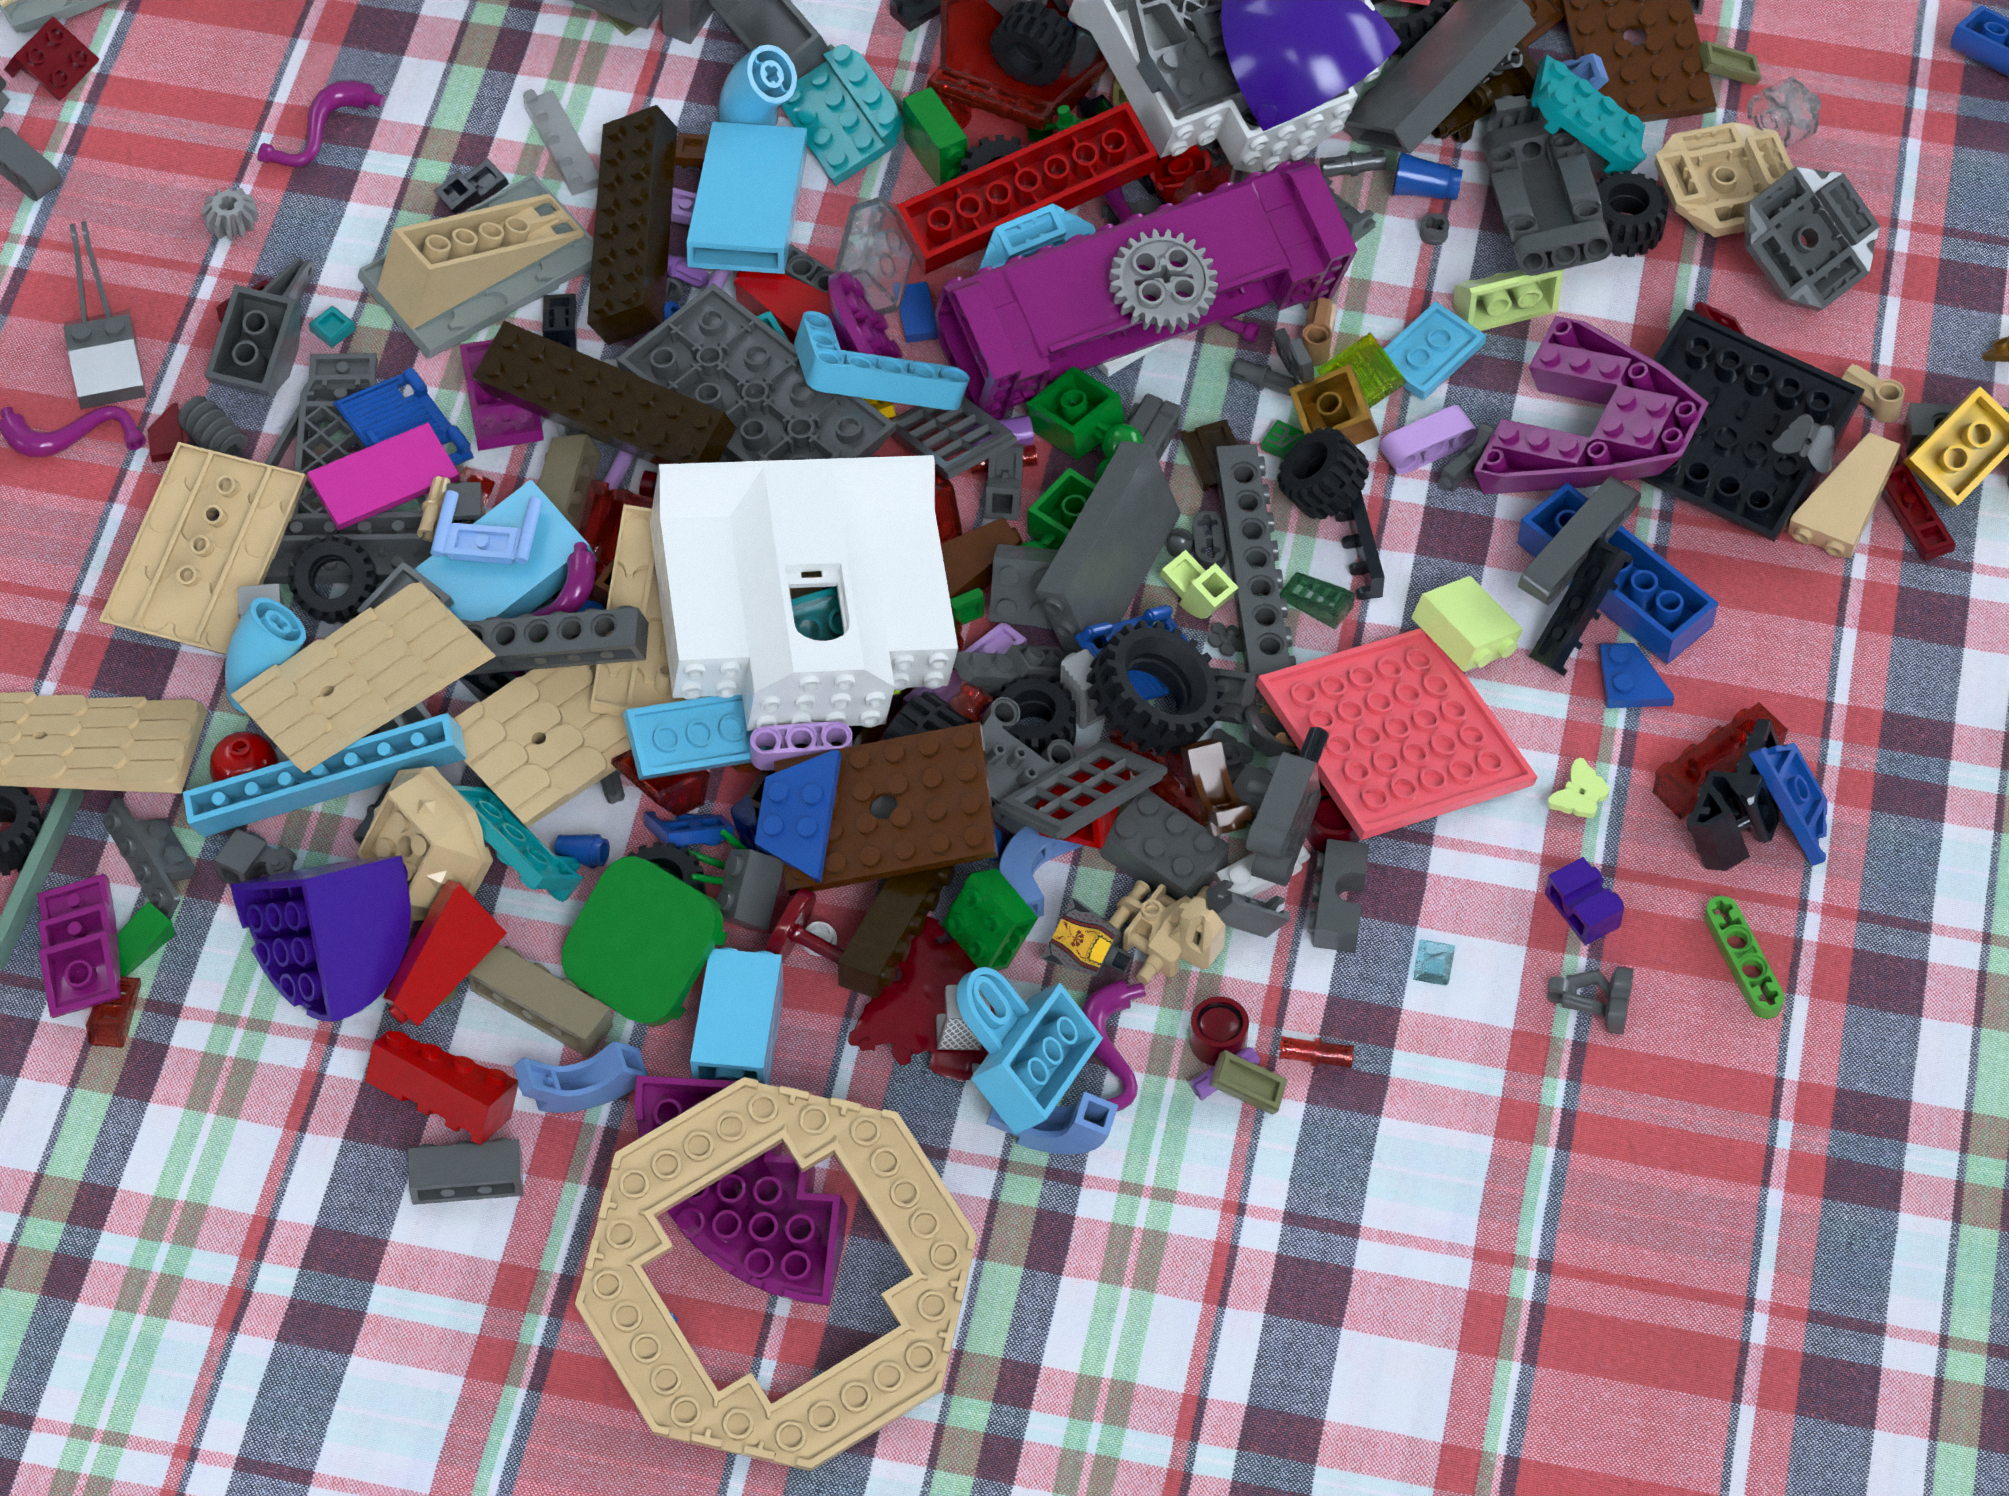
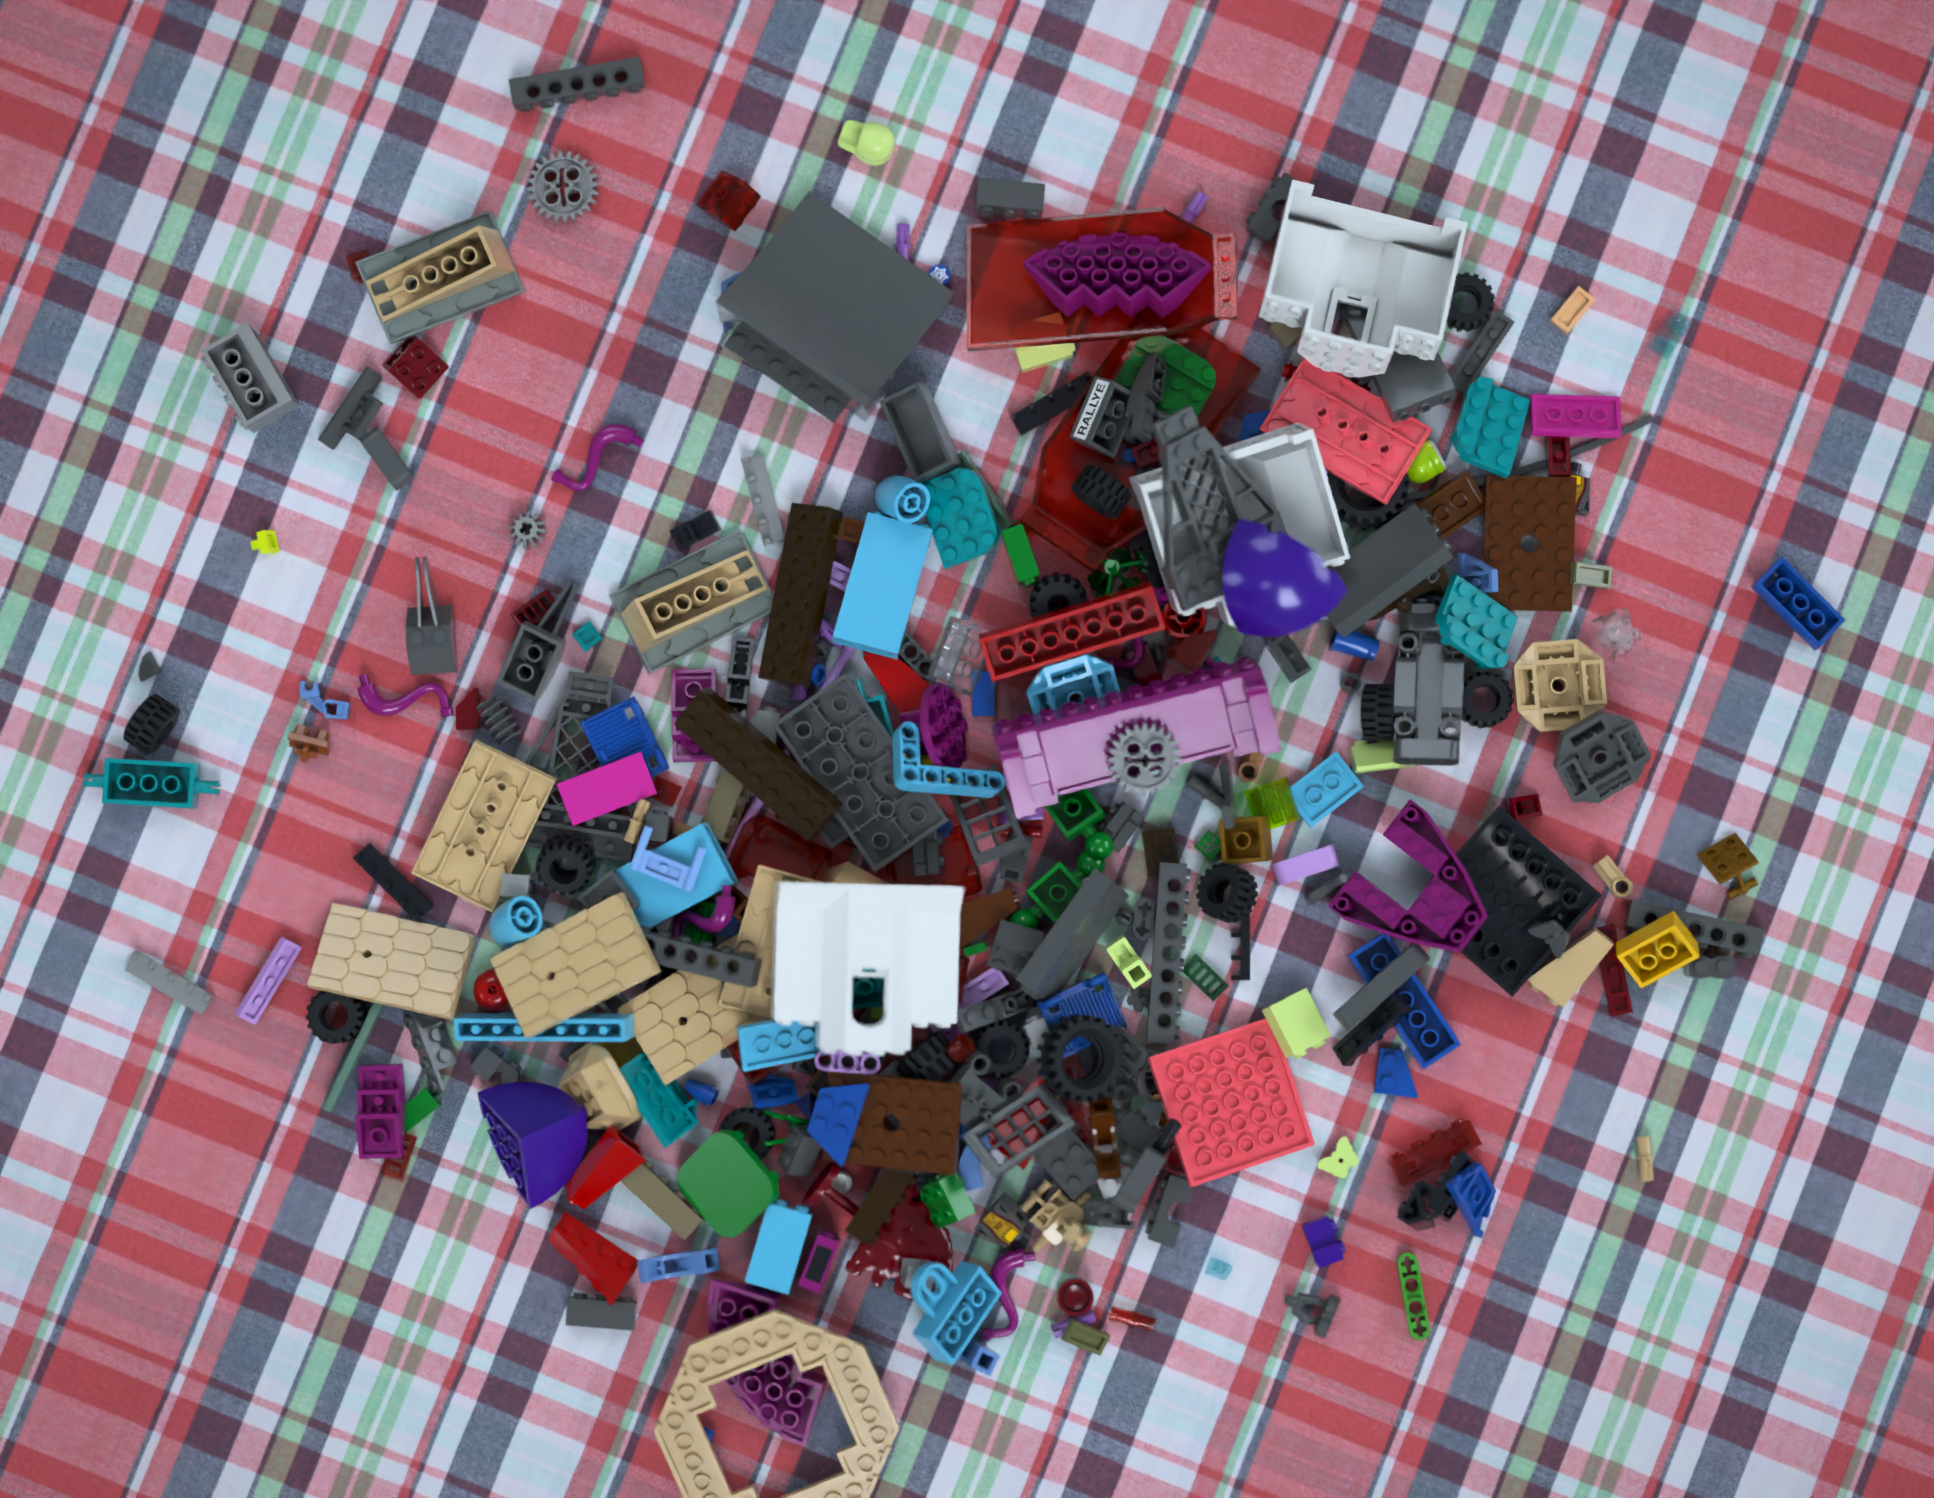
camera: 10 degrees right, 30 degrees up
(72, 655) = (393, 882): none -> black hinge
(734, 785) = (805, 1066): none -> dark grey tile
(805, 1035) = (819, 1261): none -> brick
(1484, 235) = (1378, 711): none -> black tyre

